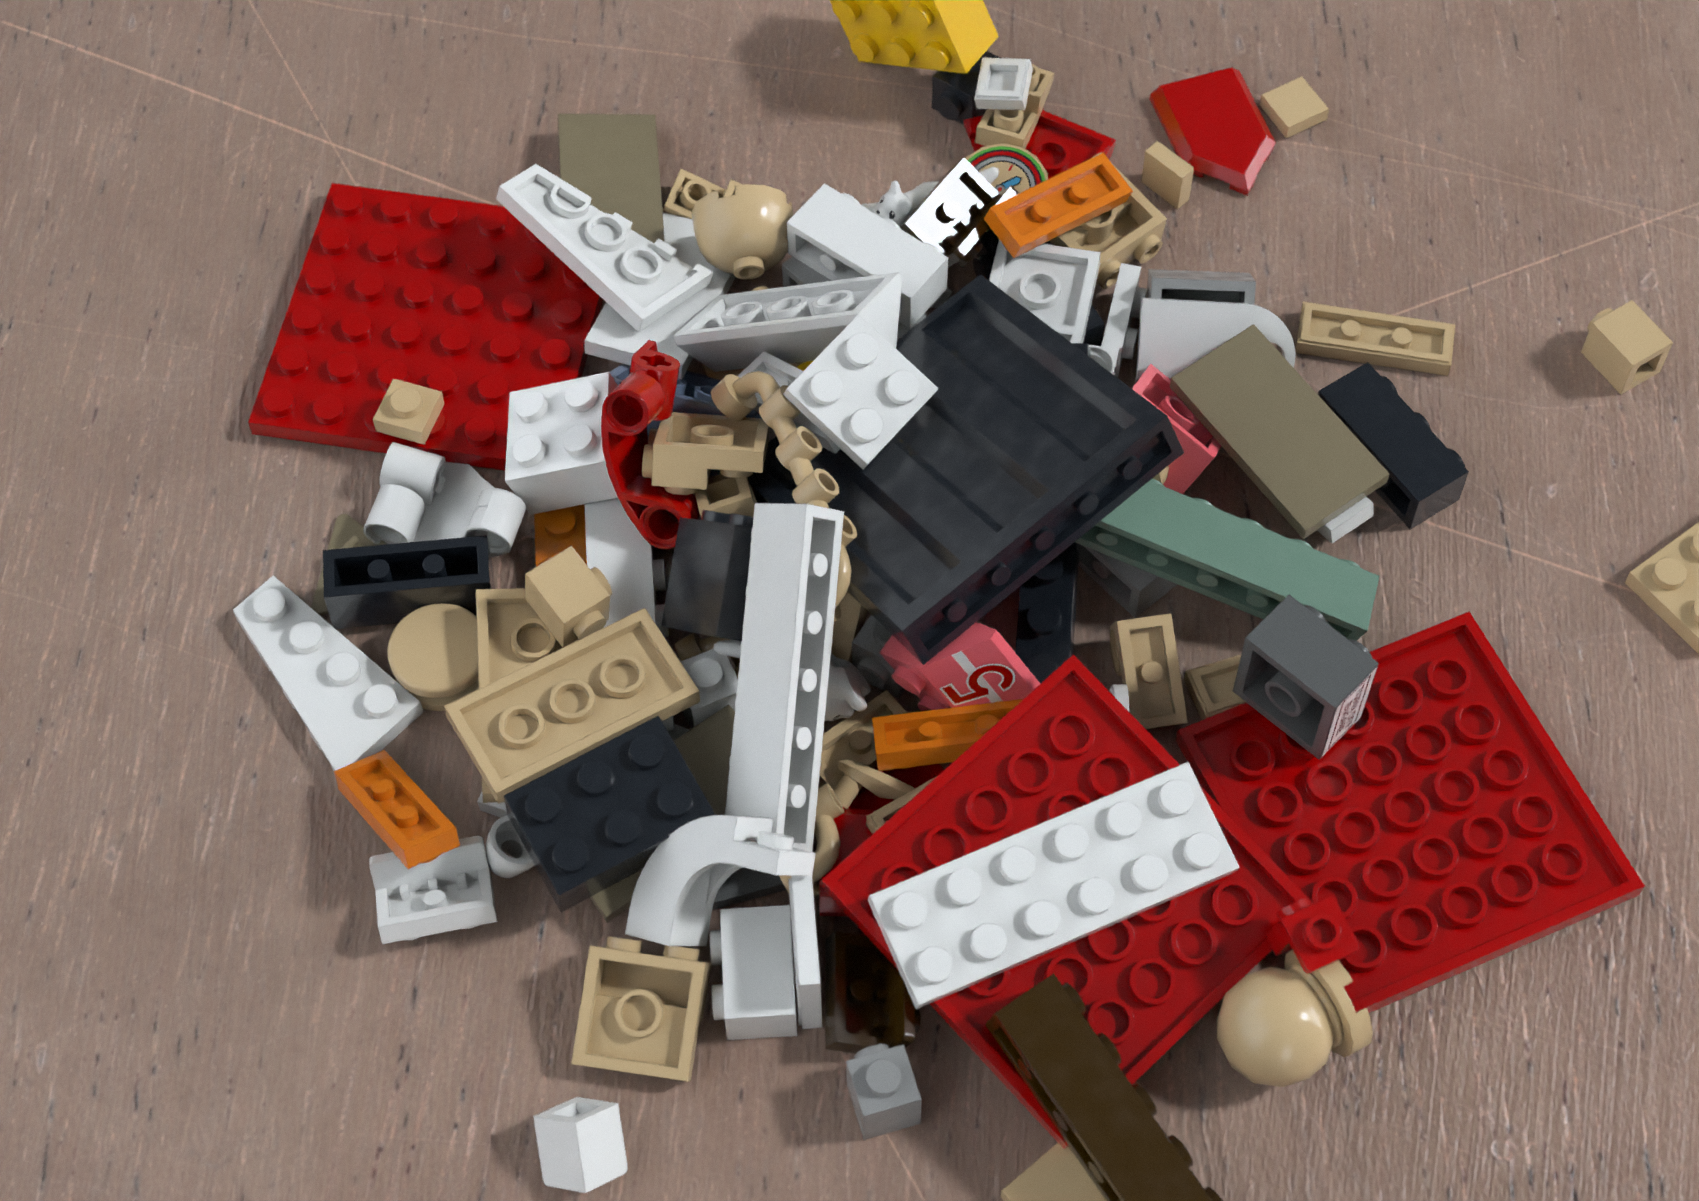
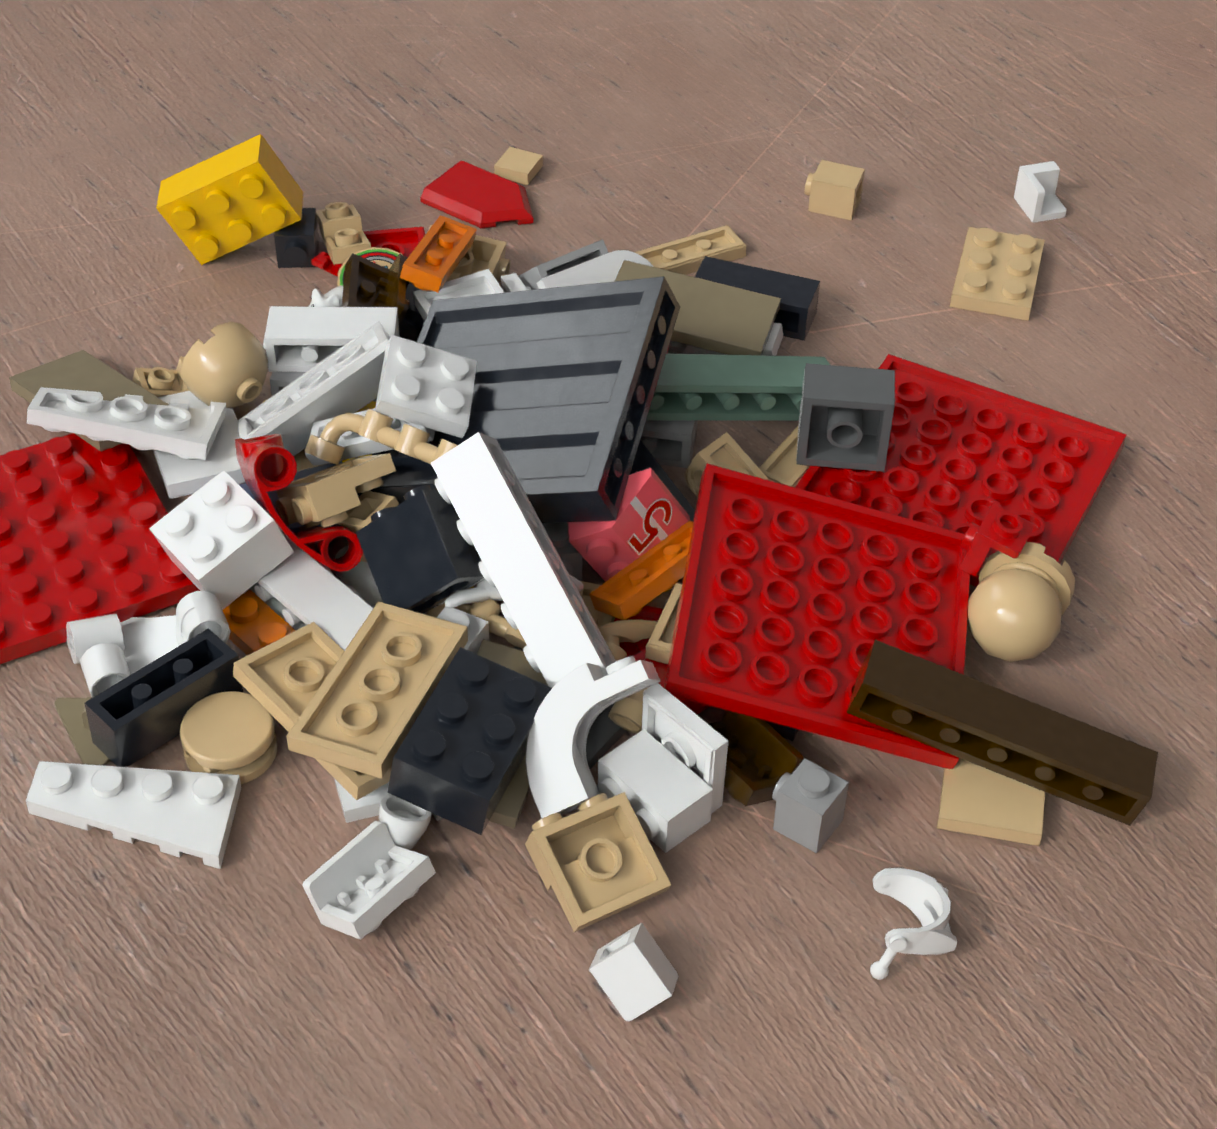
camera: 40 degrees left, 15 degrees down
(397, 809) = (294, 840): orange plate -> none
(408, 411) = (63, 595): tan plate -> none
(569, 596) = (314, 625): tan brick -> none
(1003, 83) = (331, 215): white tile -> none
(1052, 884) = (812, 606): white plate -> none
(1167, 174) = (481, 219): tan tile -> none

